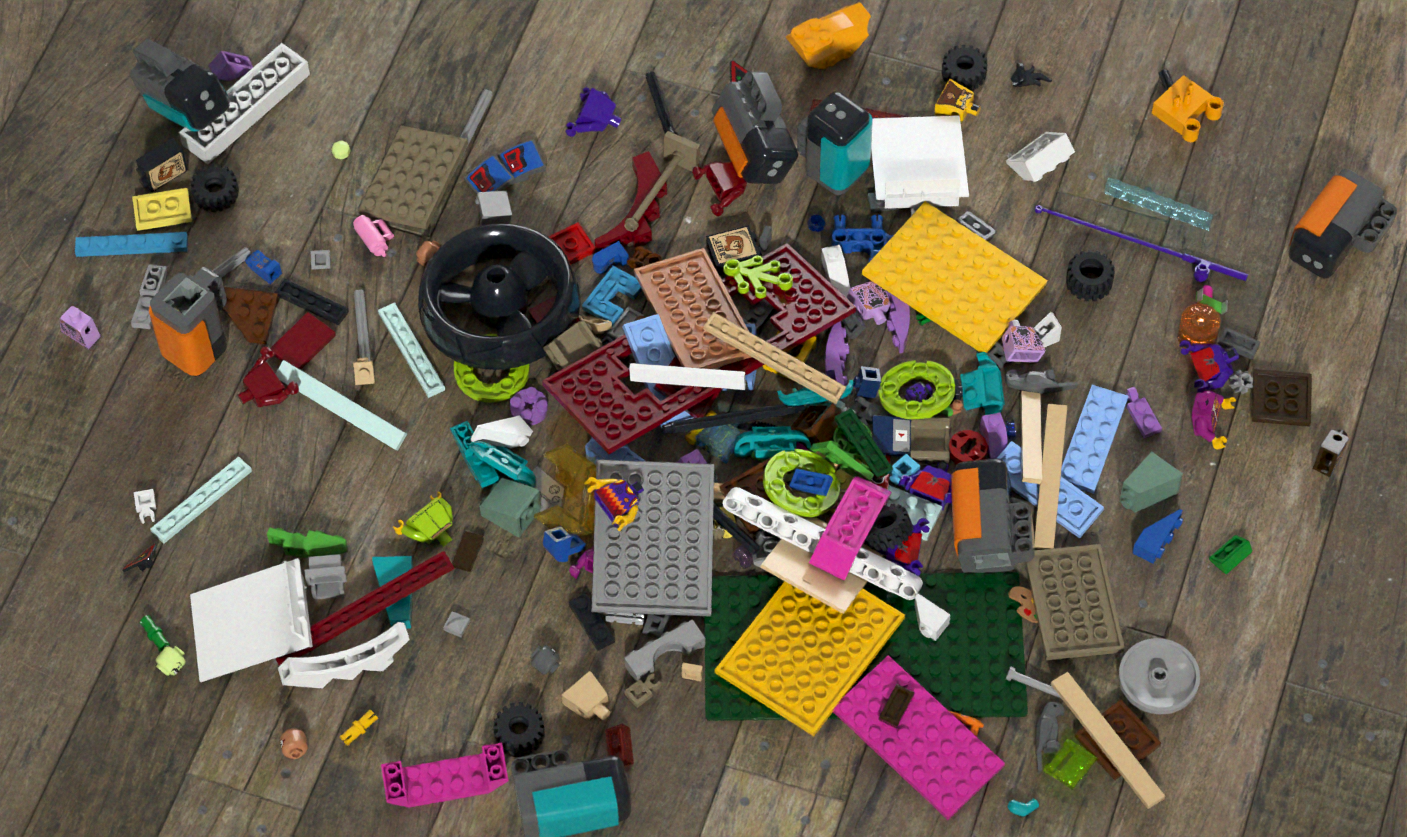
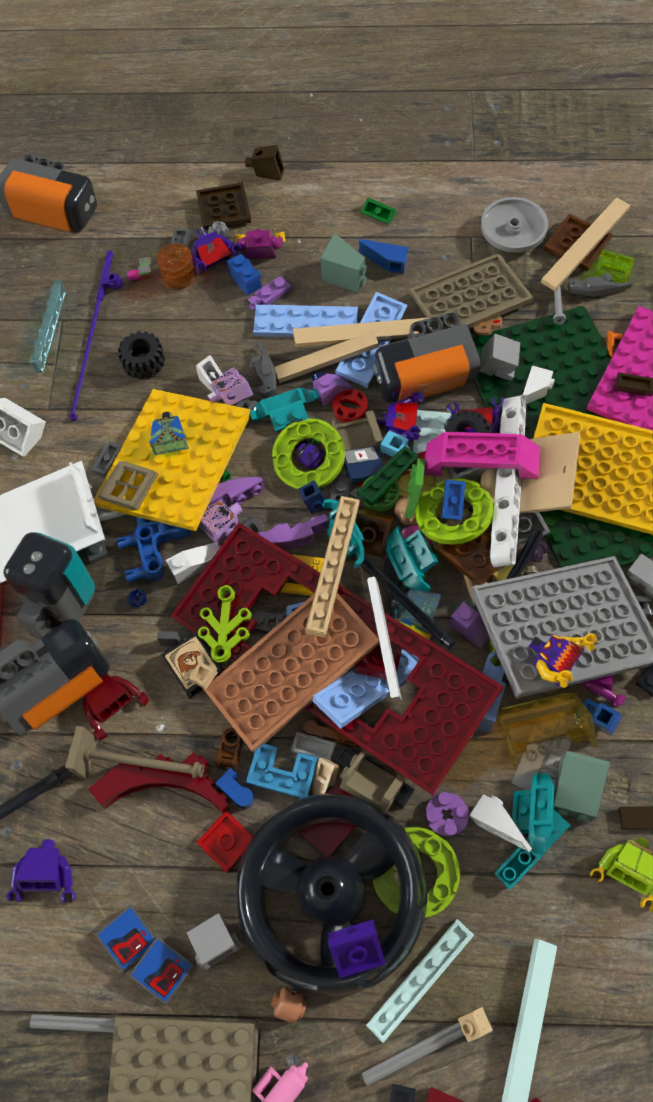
camera: 105 degrees left, 5 degrees up
(444, 281) = (356, 949): none -> dark purple bracket
(715, 248) = (202, 675): none -> tan tile
(938, 218) = (141, 492): none -> dark tan piece
(973, 594) = (500, 357): none -> light grey plate
(974, 270) = (167, 435): none -> clear light blue torso
(1171, 391) = (244, 274): none -> blue brick

